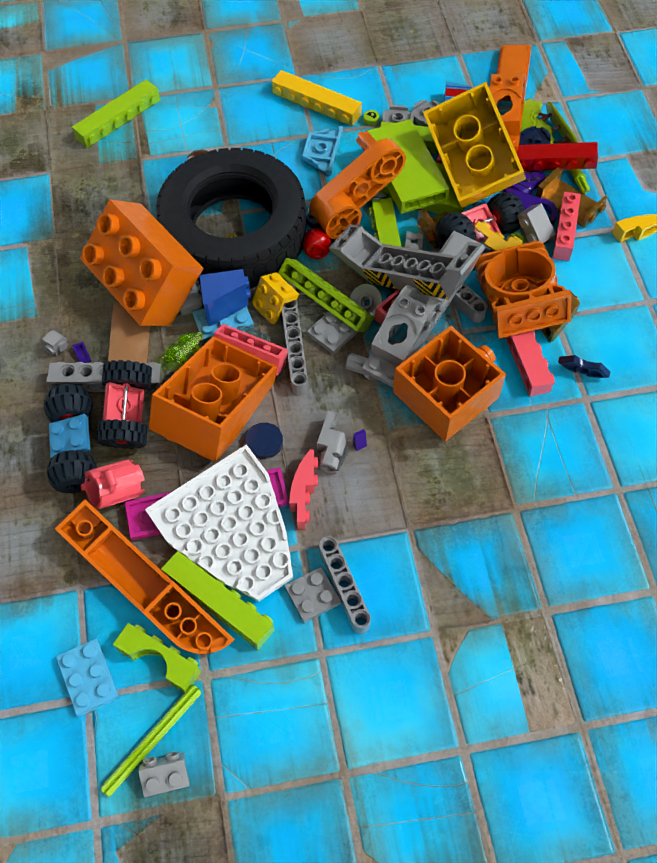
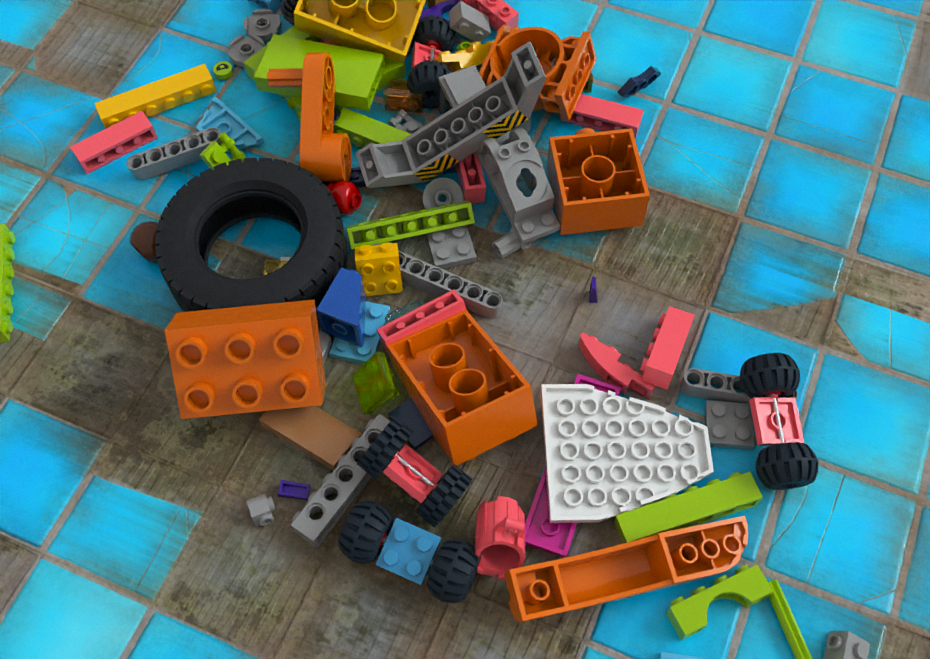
camera: 55 degrees left, 0 degrees up
(263, 100) = (114, 142): none -> coral brick
(264, 440) = (536, 369): dark blue tile -> none
(278, 135) = (171, 154): none -> light grey beam
(288, 156) = (215, 154): none -> lime plate
(325, 620) = (776, 420): none -> black plate
(331, 445) = (580, 316): light grey plate -> none
(341, 512) = (667, 347): none -> coral brick

